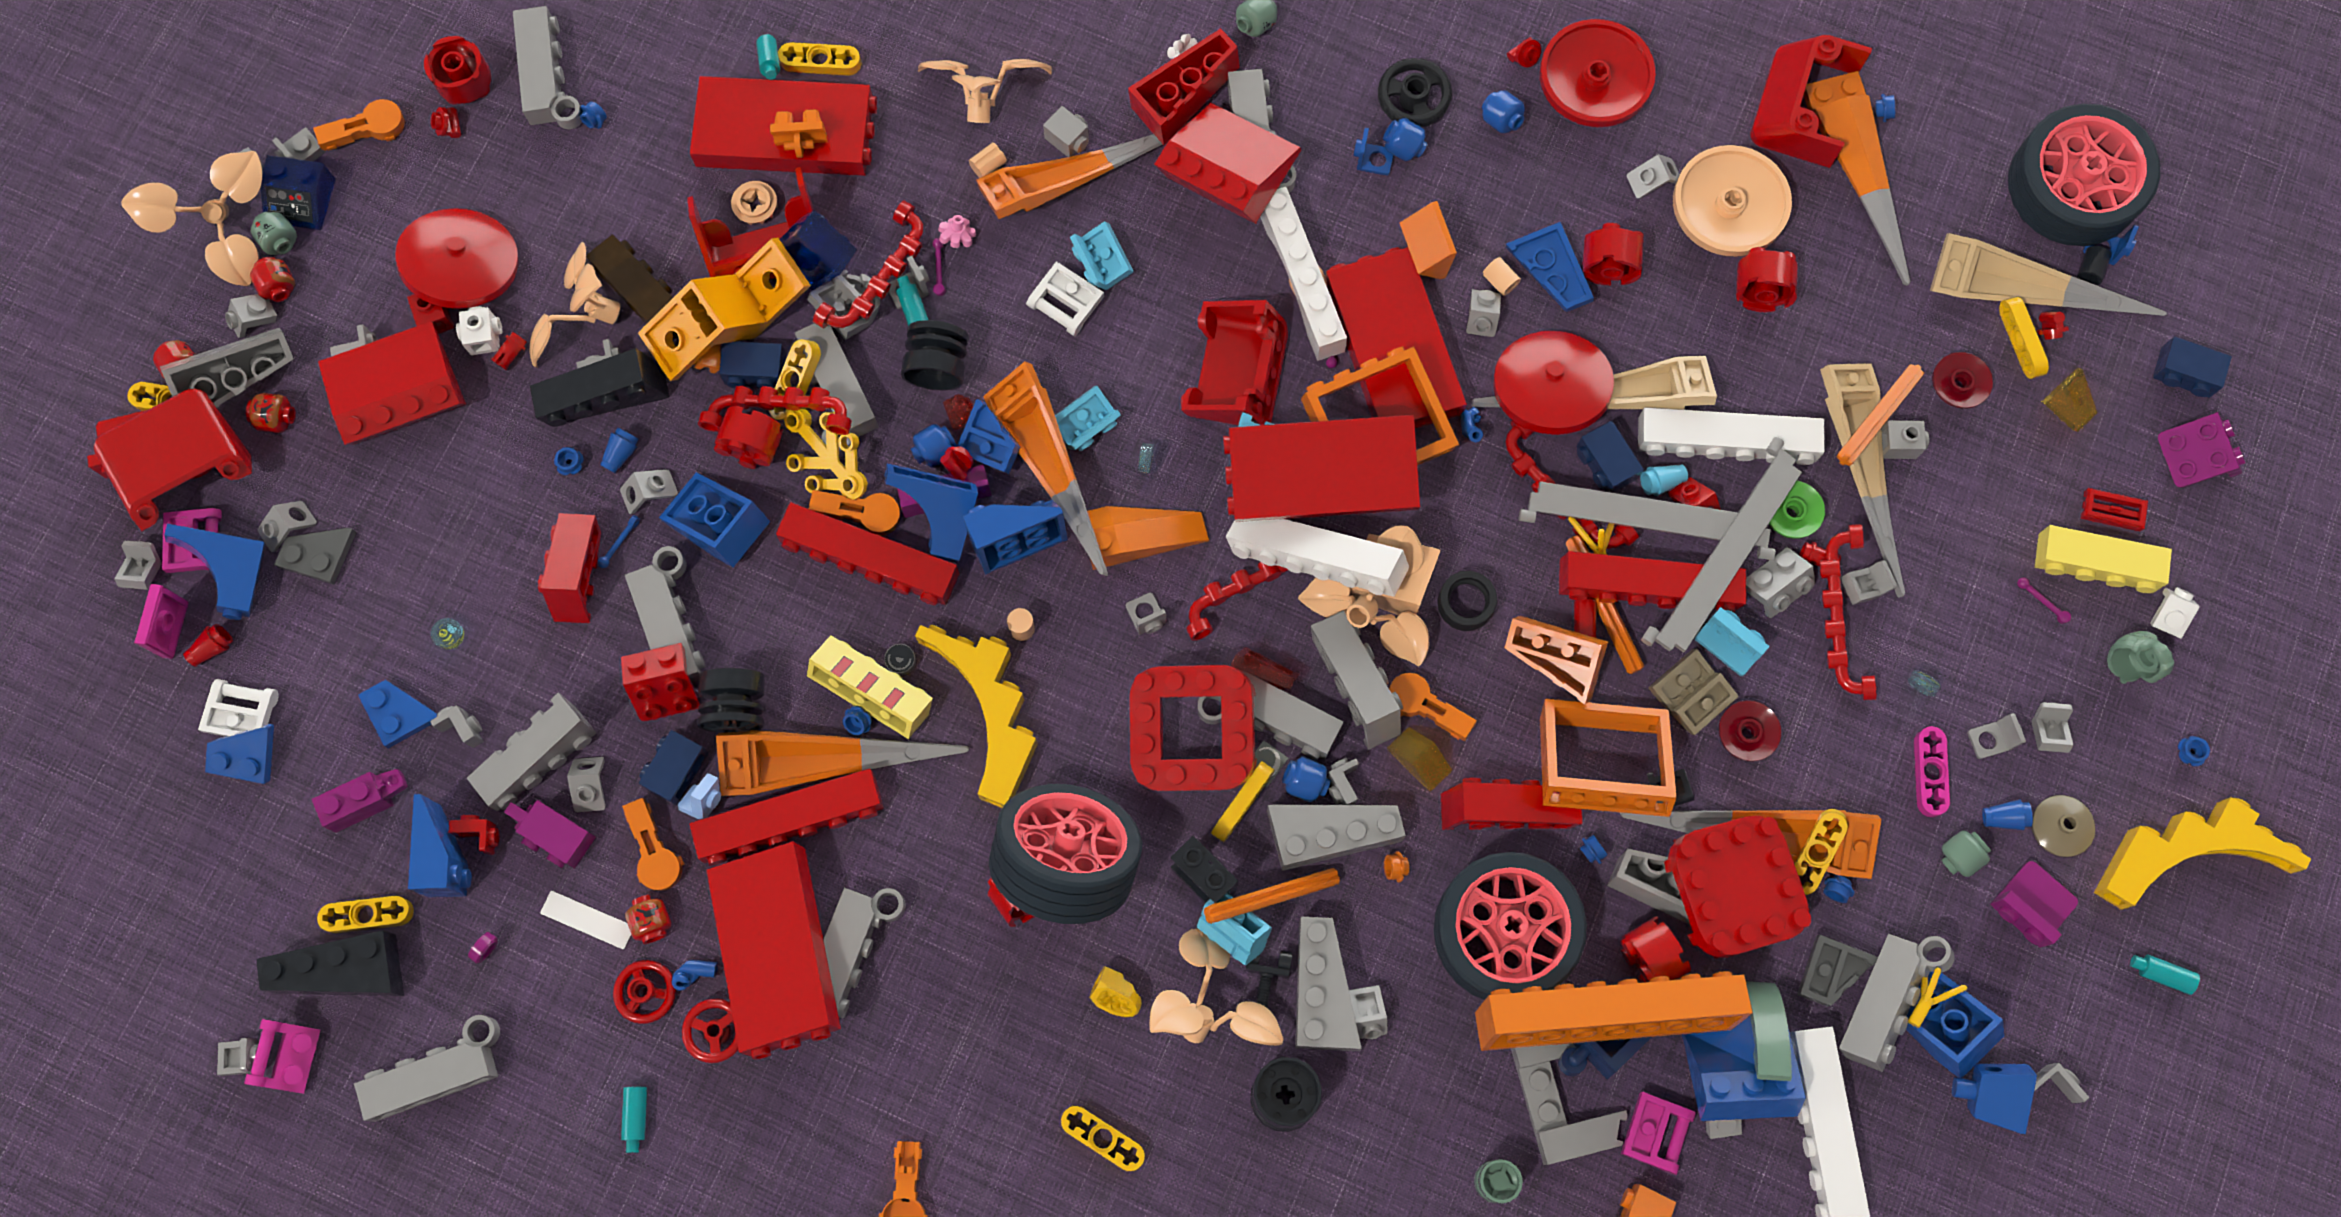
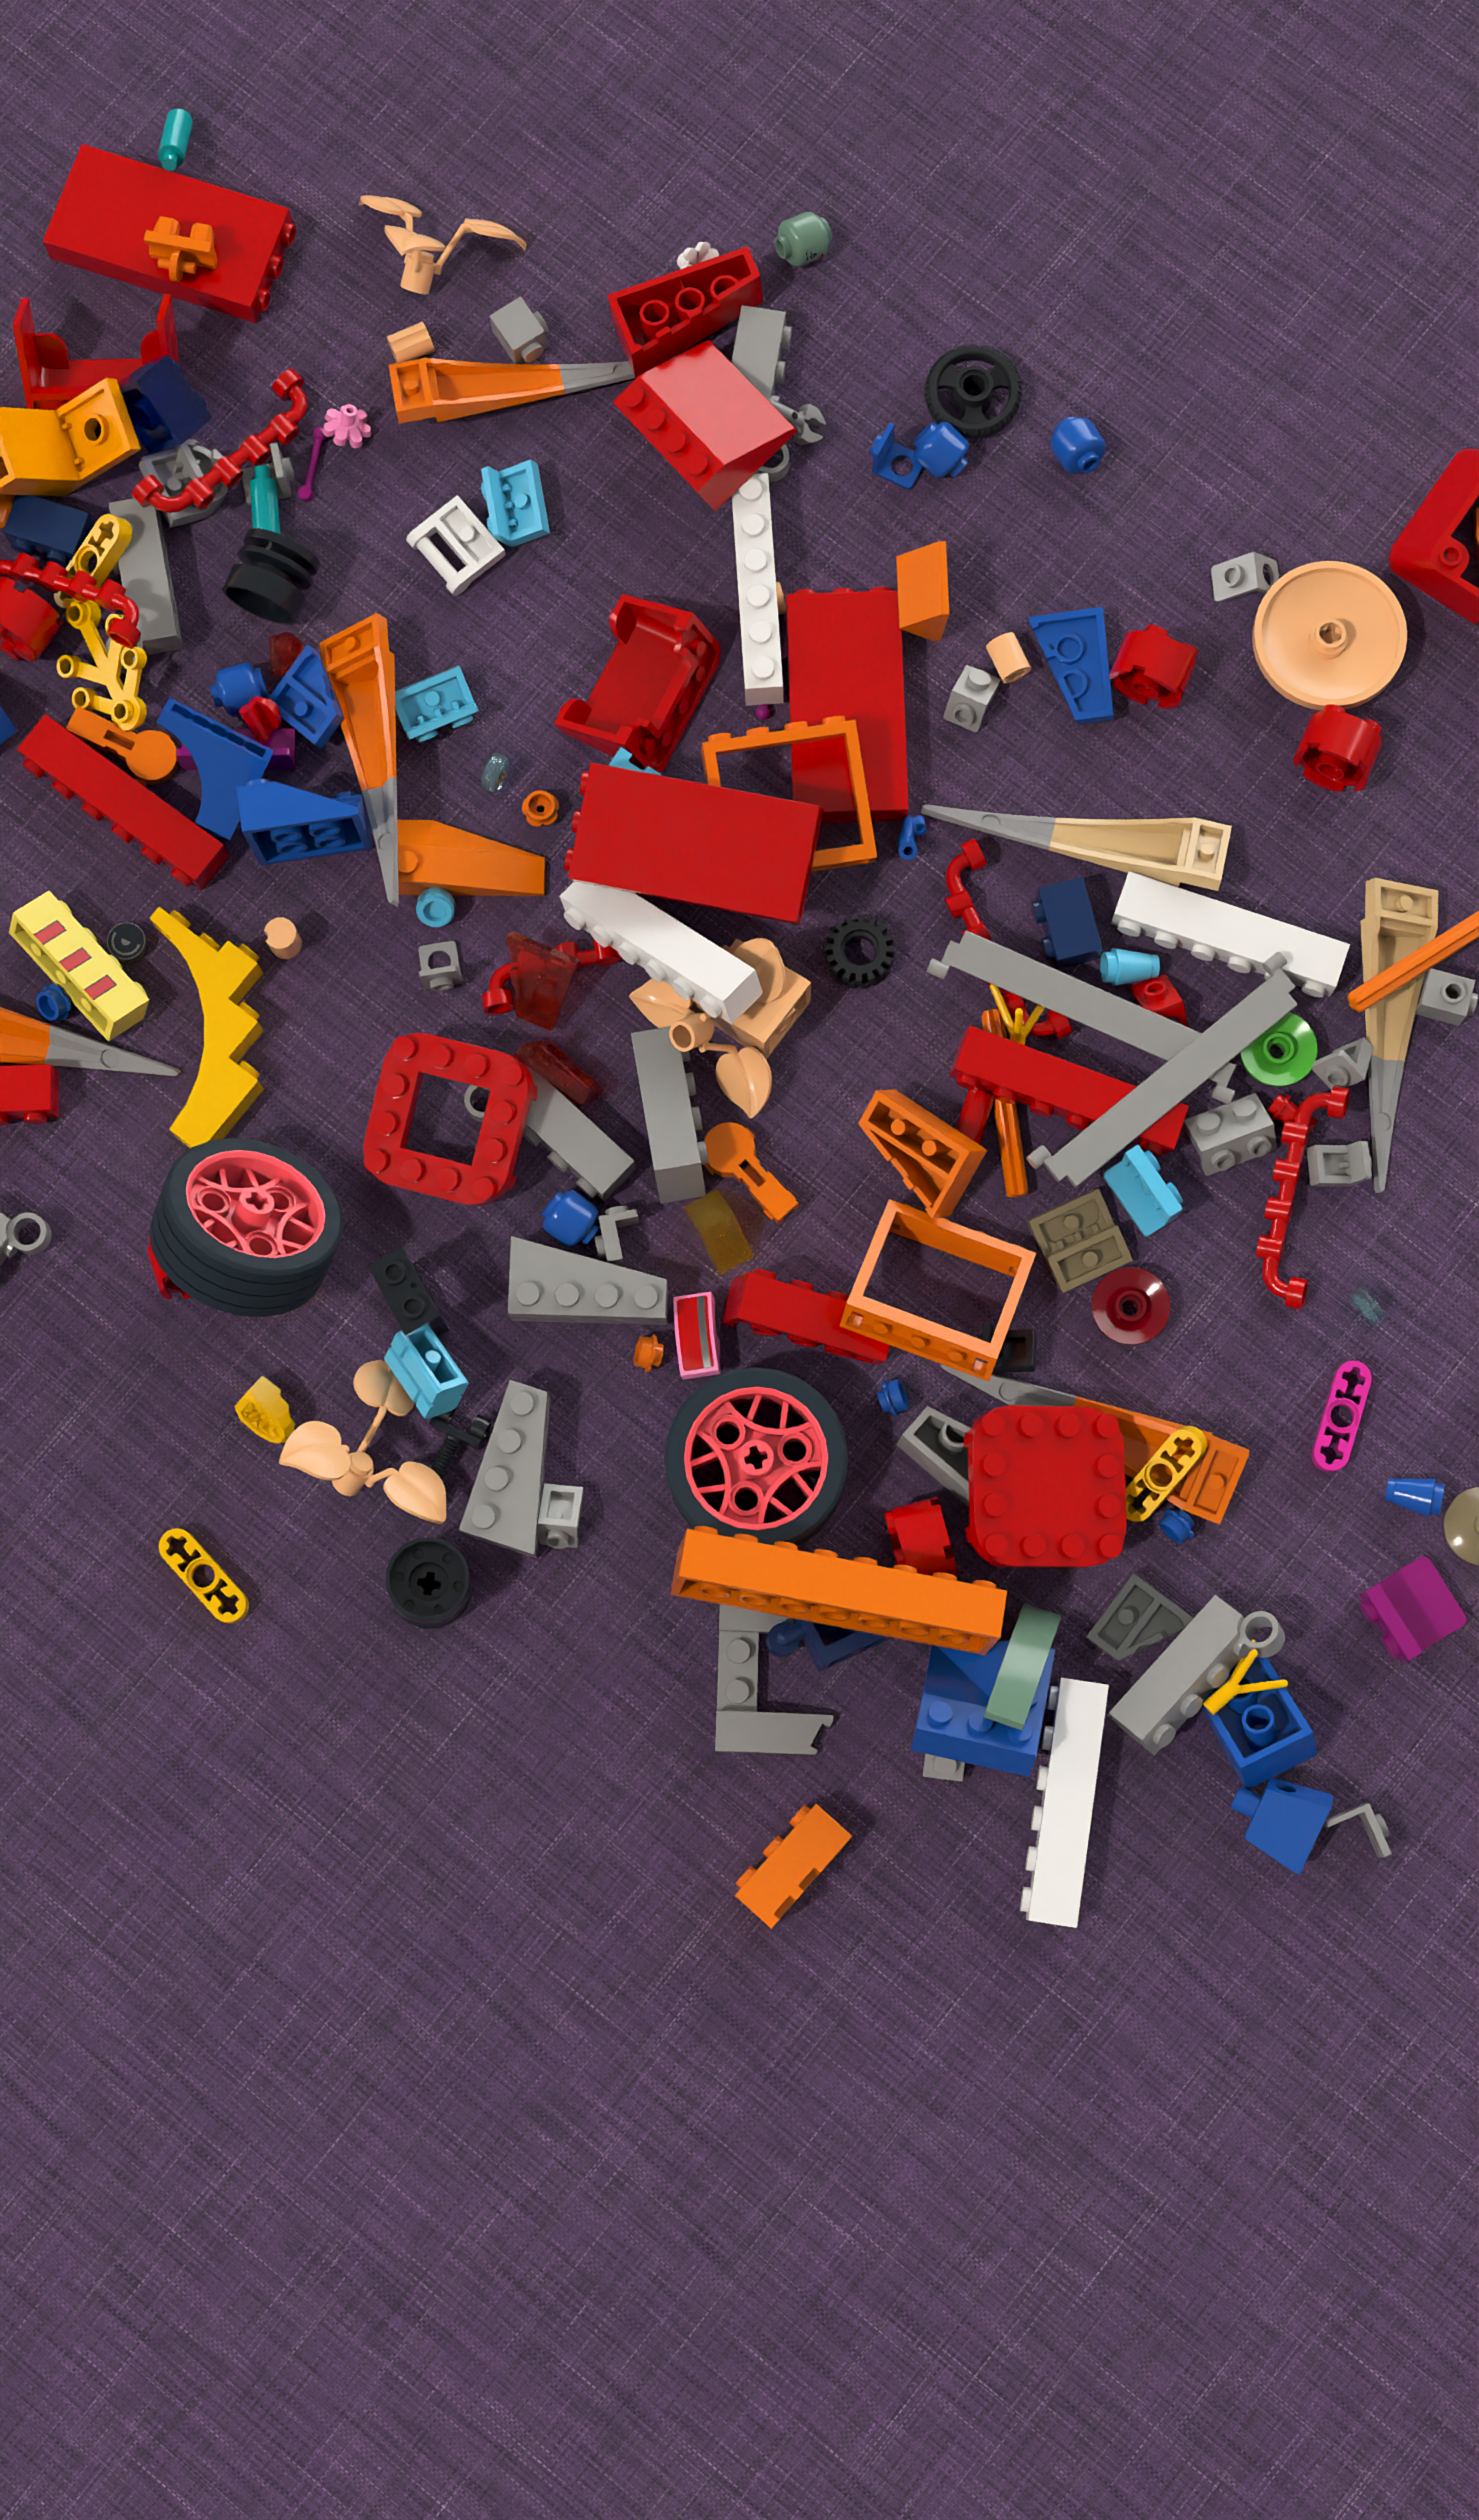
camera: 20 degrees right, 5 degrees up
(746, 194) = (102, 310): light nougat gear -> none
(811, 50) = (229, 145): yellow beam -> none
(1131, 570) = (435, 907): none -> medium azure tile
(1187, 468) = (537, 799): none -> orange plate
(1228, 603) = (540, 979): none -> clear red wing
(1242, 801) = (486, 1224): yellow beam -> none
(1271, 757) = (532, 1187): light grey sticker -> none
(1271, 895) = (482, 1345): orange axle -> none
(1302, 140) = (797, 419): none -> light grey bar
(1430, 843) = (696, 1335): none -> slope
(1460, 502) = (859, 929): none -> black tyre
(1474, 579) = (830, 1025): black tyre -> none
(1498, 1181) = (650, 1753): sand green wheel -> none
(1526, 53) = (1133, 375): red plate -> none
(1553, 382) = (1027, 809): red dish -> none
(1597, 73) = (1212, 425): red dish -> none
(1648, 1128) = (851, 1744): dark pink plate -> none
(1849, 507) = (1345, 1065): none -> light grey bracket
(1965, 853) = (1346, 1526): sand green head -> none
(2006, 733) = (1448, 1391): light grey bracket -> none

